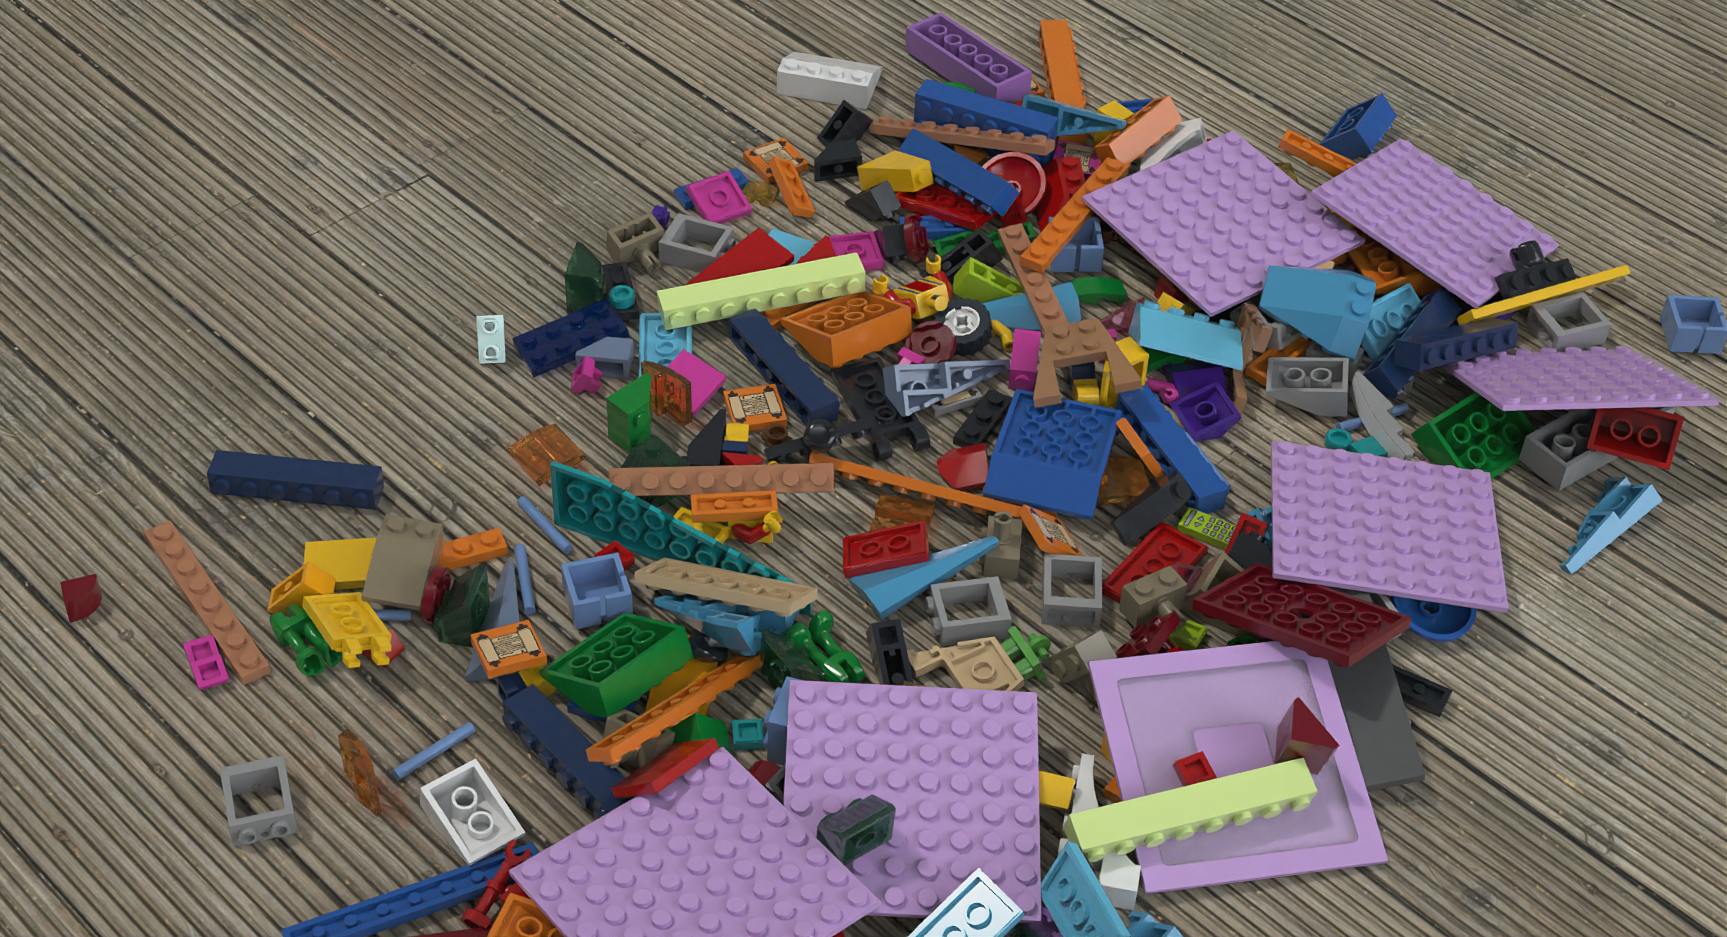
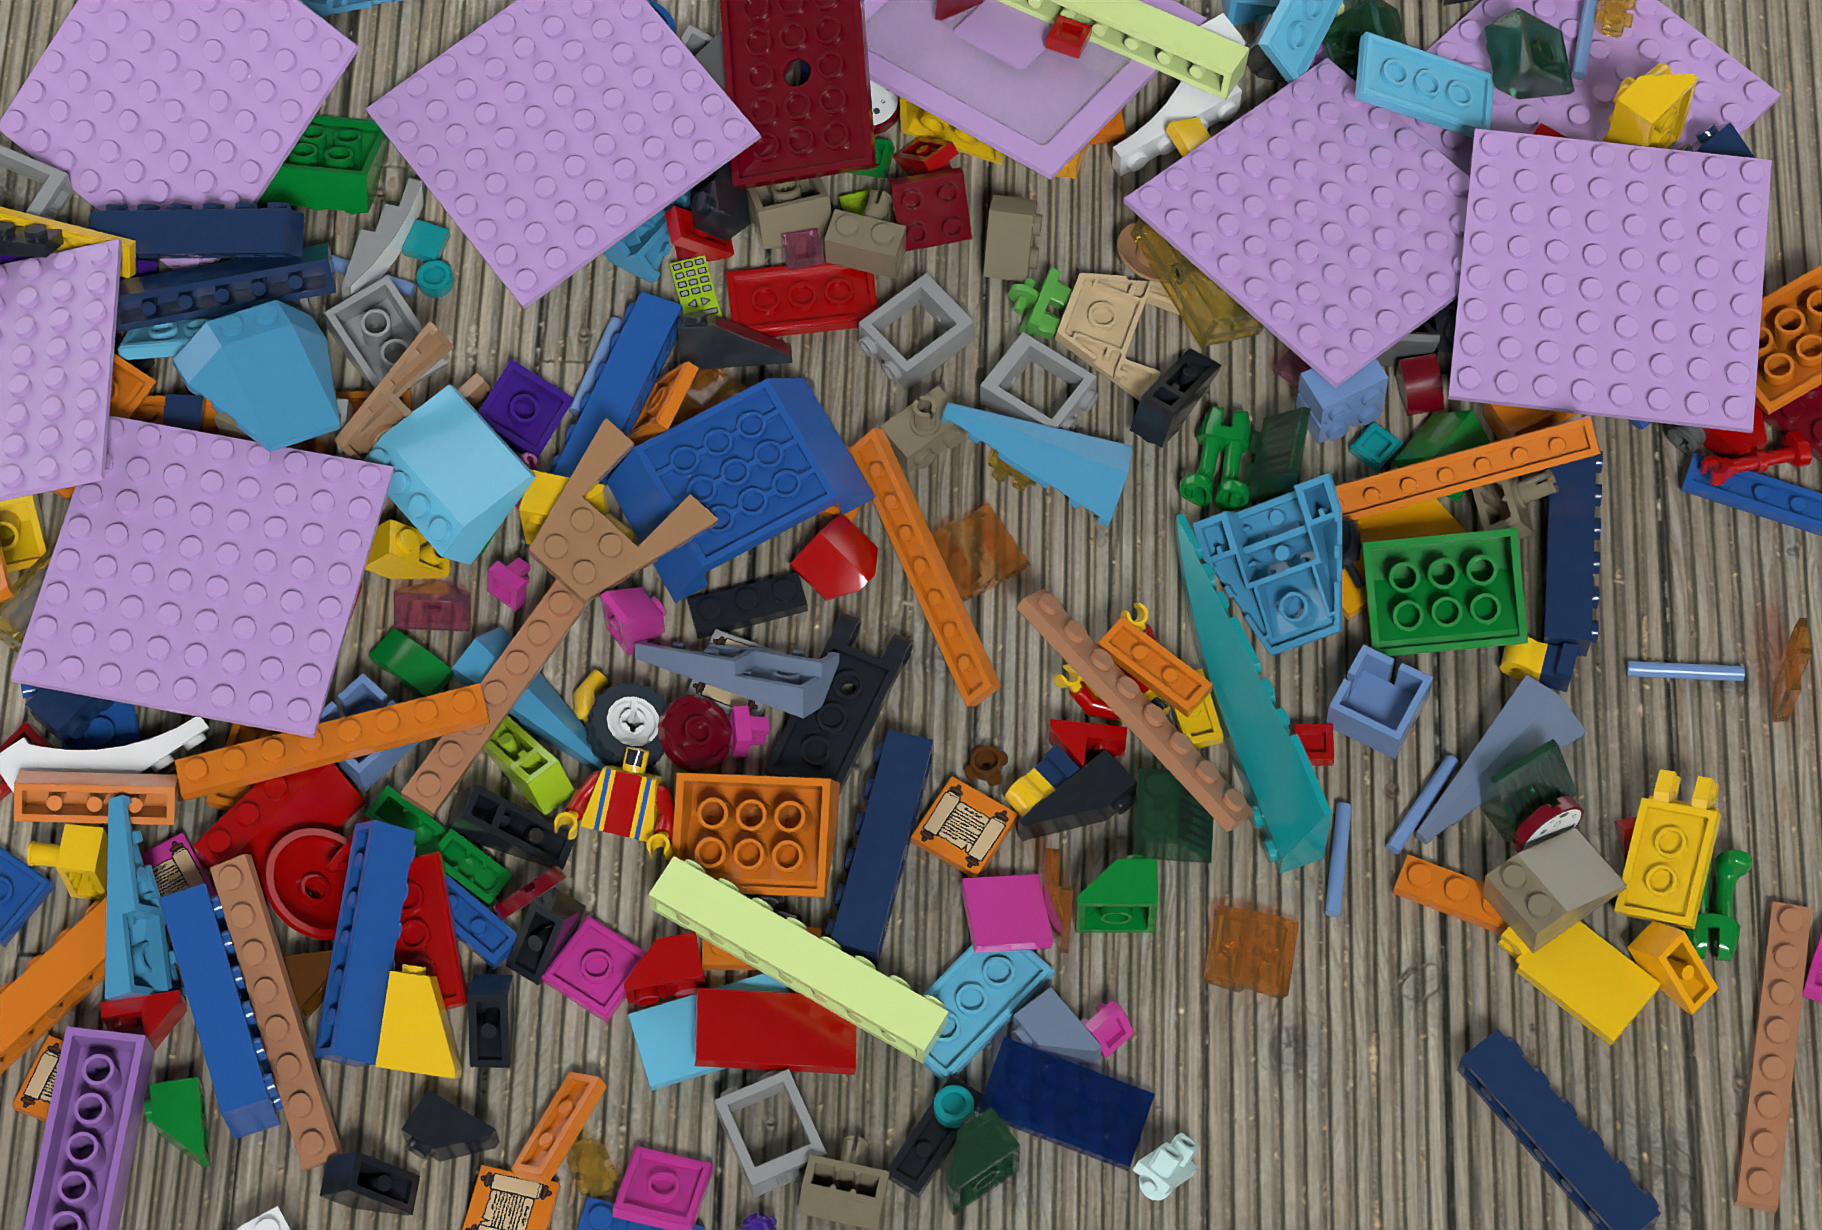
camera: 130 degrees left, 20 degrees up
(470, 812) = (1719, 553): white slope -> none
(508, 649) = (1542, 679): tile -> none
(665, 768) = (1518, 406): red tile -> none
(726, 585) = (1258, 579): tan plate -> none
(818, 438) = (966, 695): black plate -> none
(858, 828) = (1430, 198): slope -> none
(885, 549) = (1045, 513): red tile -> none
(1048, 532) = (868, 394): orange tile -> none

